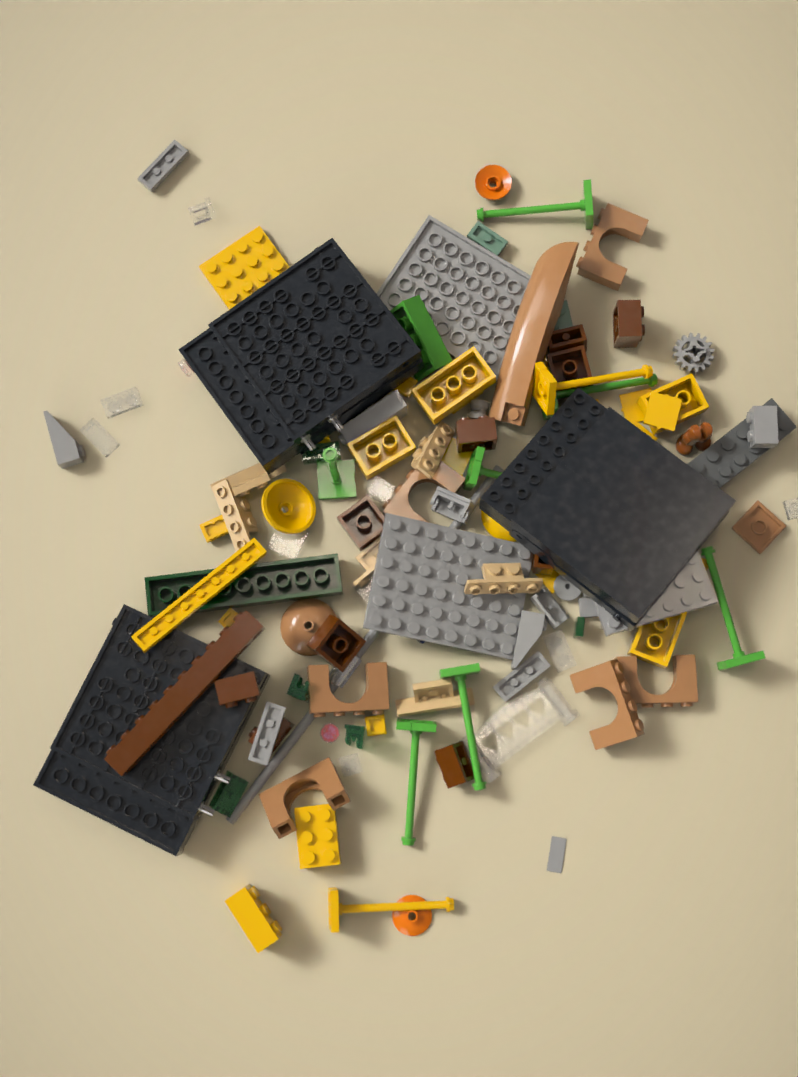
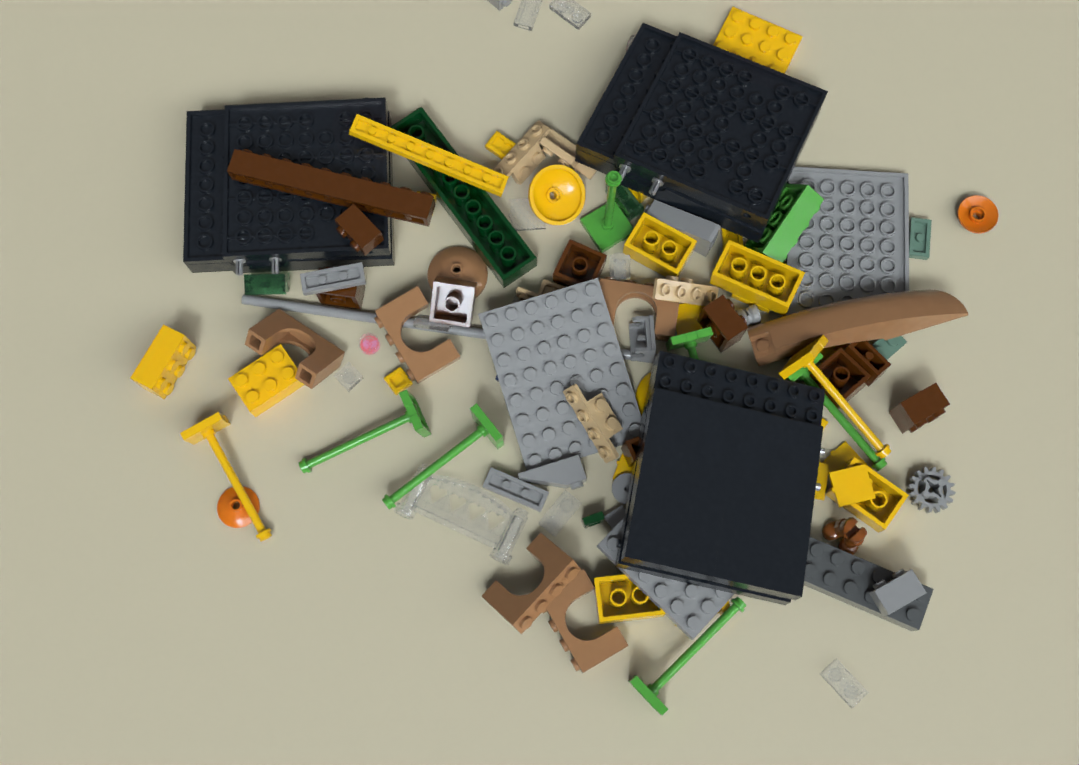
camera: 60 degrees right, 5 degrees down
(298, 689) = (392, 288): clear green hinge -> none
(354, 731) = (378, 367): clear green hinge -> none
(431, 697) = (450, 416): tan bracket -> none
(455, 764) = (397, 469): reddish brown brick -> none
(548, 605) = (596, 482): light grey hinge -> none
(556, 854) = (363, 613): light grey sticker -> none
(584, 205) = (1011, 308): bright green tile -> none
(612, 222) = (1011, 342): medium nougat arch -> none
(758, 527) = (795, 647): medium nougat tile -> none

